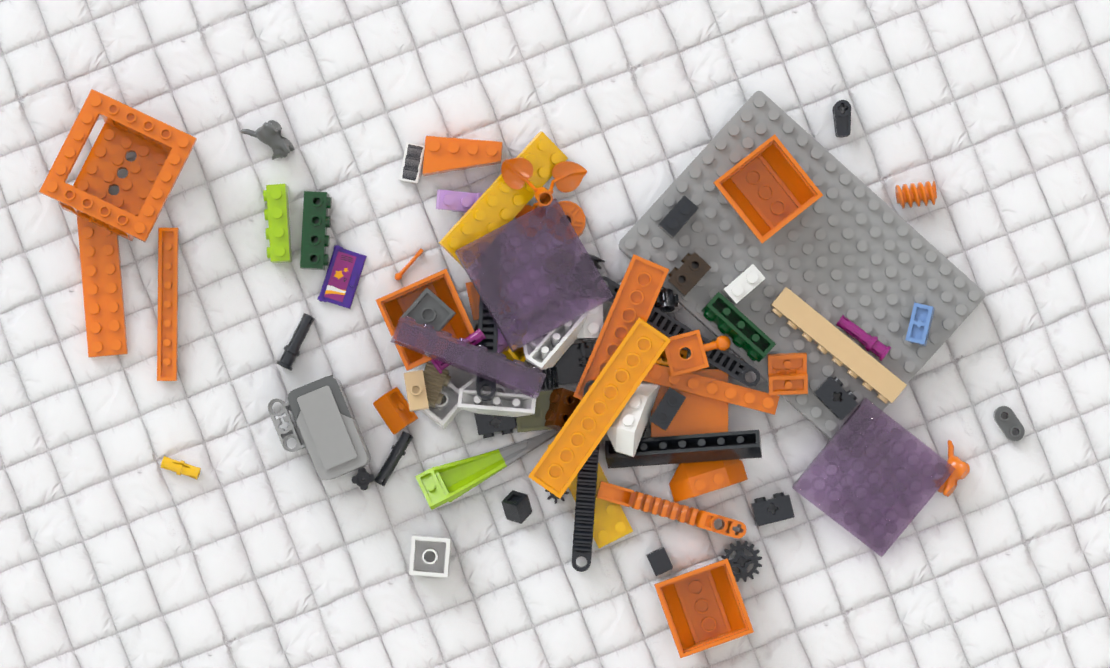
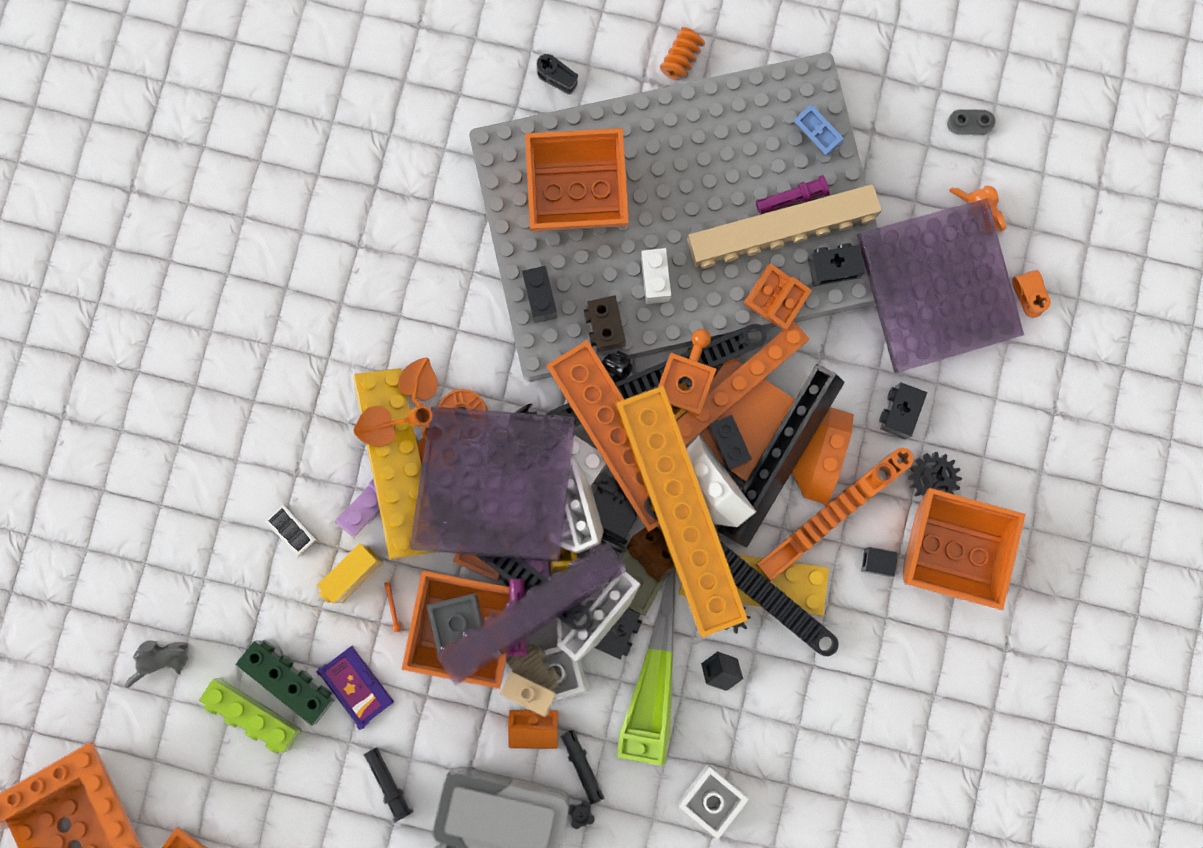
camera: 60 degrees left, 5 degrees down
(411, 222) = (349, 574): none -> yellow brick
(454, 154) = (311, 481): orange wedge -> none
(738, 327) = (696, 311): dark green brick -> none
(917, 540) = (1031, 289): none -> orange piece

